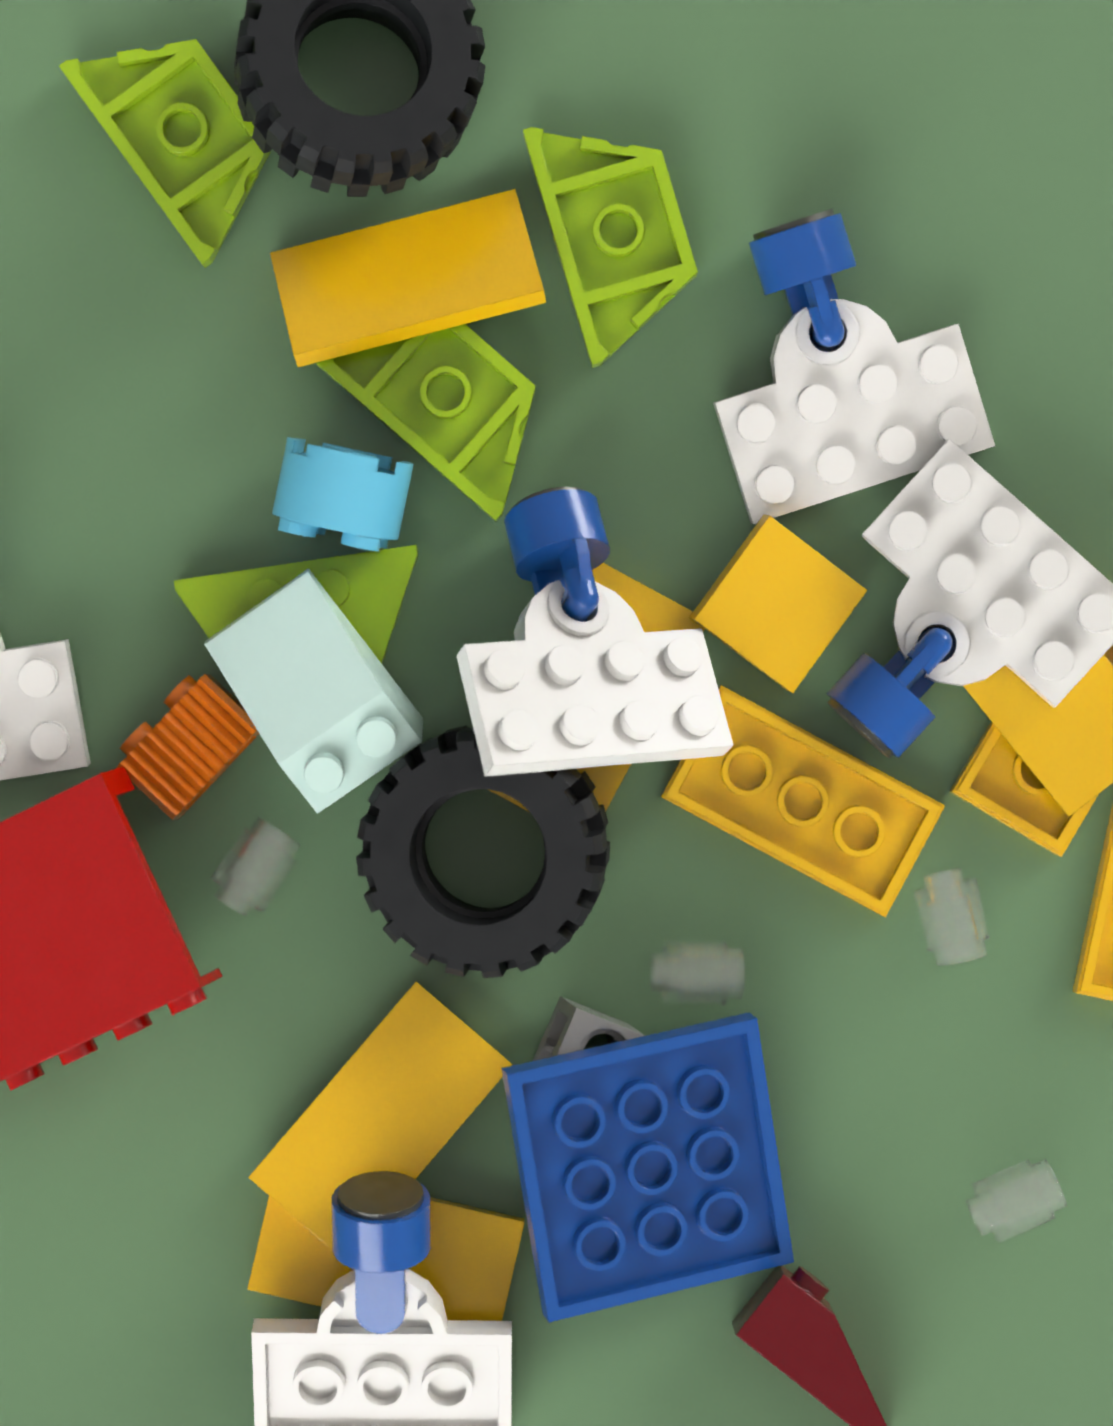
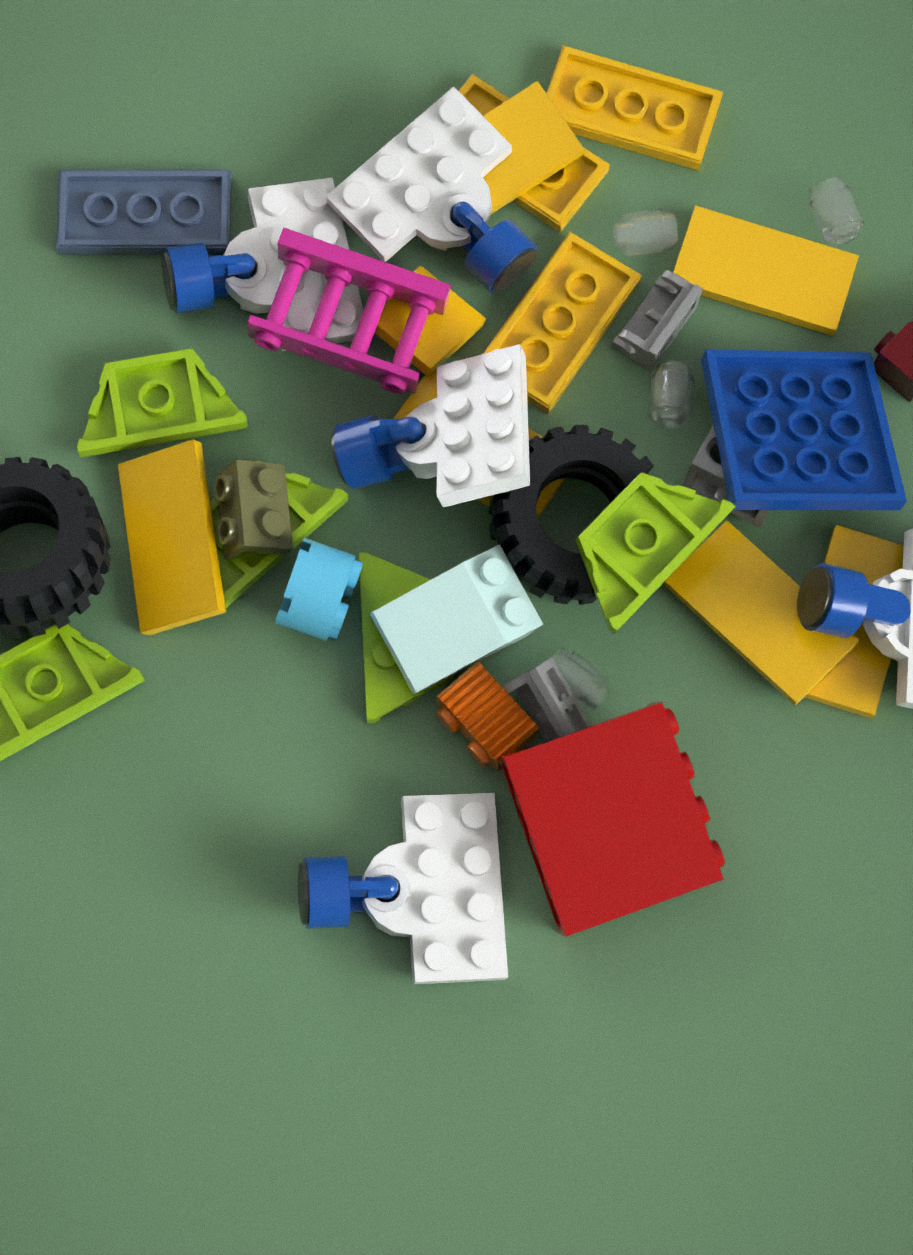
camera: 90 degrees left, 15 degrees down
(207, 837) = (549, 700): none -> light grey hinge
(429, 947) = (643, 542): none -> lime wing
(451, 388) = (253, 509): none -> olive bracket
(816, 944) = (658, 319): none -> light grey hinge
(823, 472) = (342, 269): none -> dark pink fence
(914, 1098) = (766, 270): none -> yellow tile
(915, 176) = (142, 211): none -> sand blue tile

